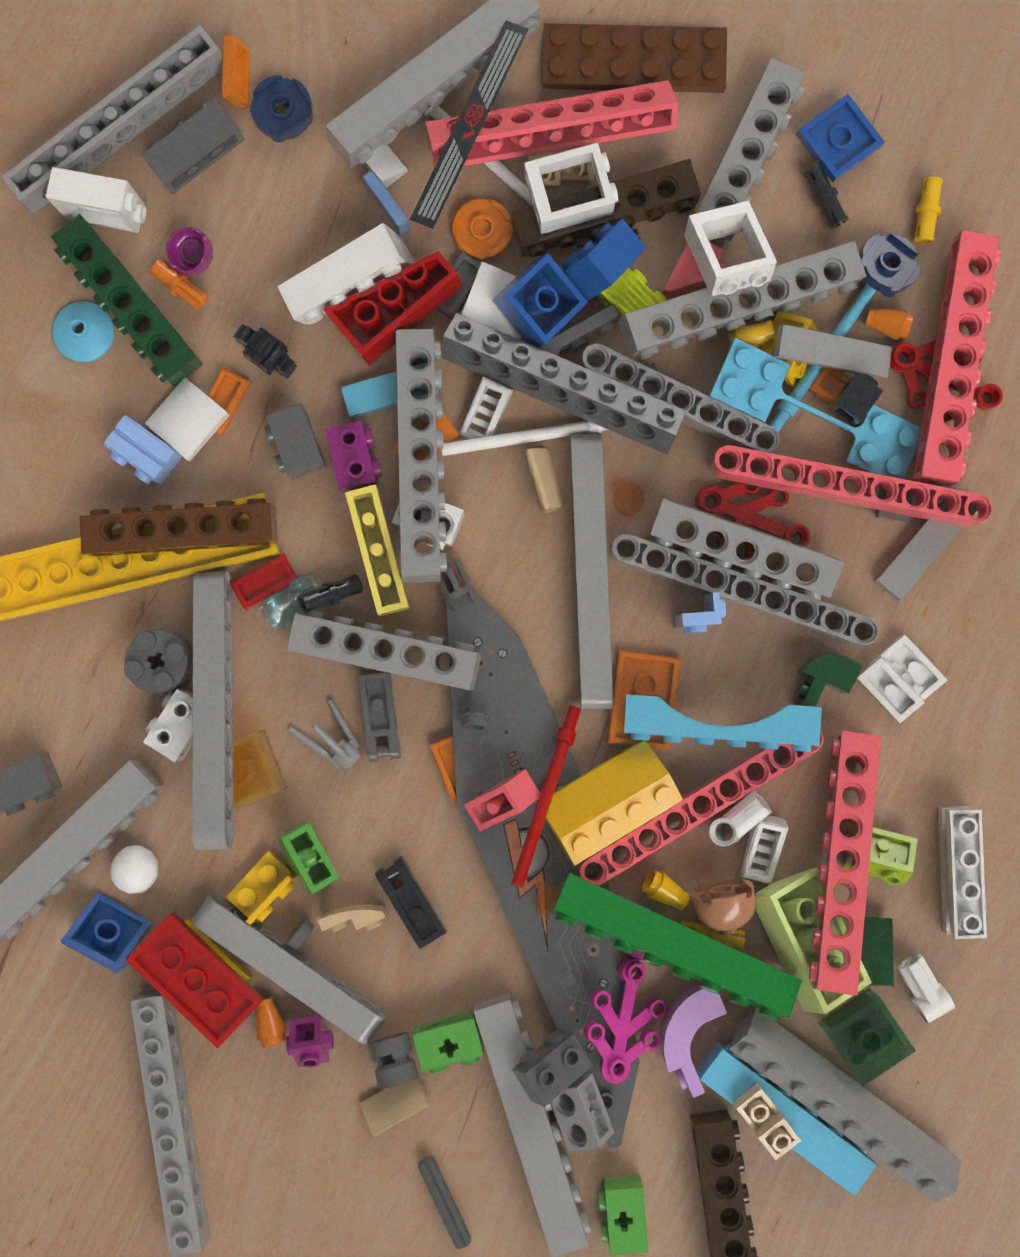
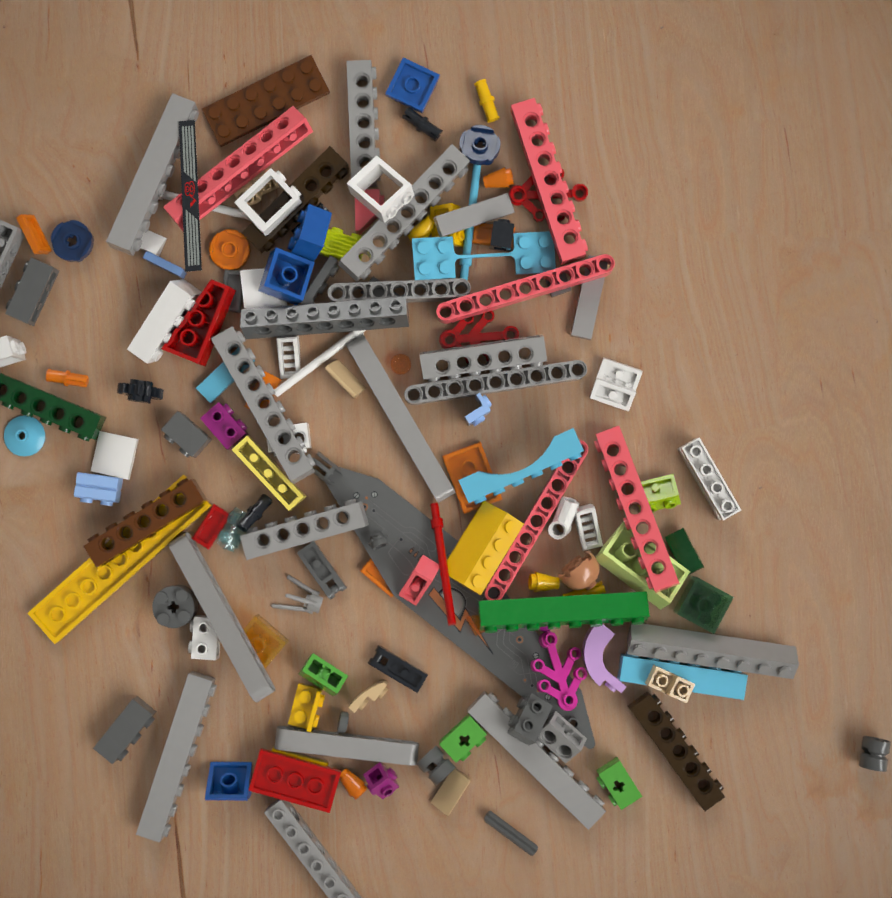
camera: 30 degrees left, 0 degrees up
(134, 869) = (225, 736): white hair -> none
(189, 251) = (63, 355): magenta hair -> none
(228, 393) = (131, 427): orange tile -> none
(826, 670) = (570, 402): dark green brick -> none
(928, 995) = (727, 561): white piece -> none

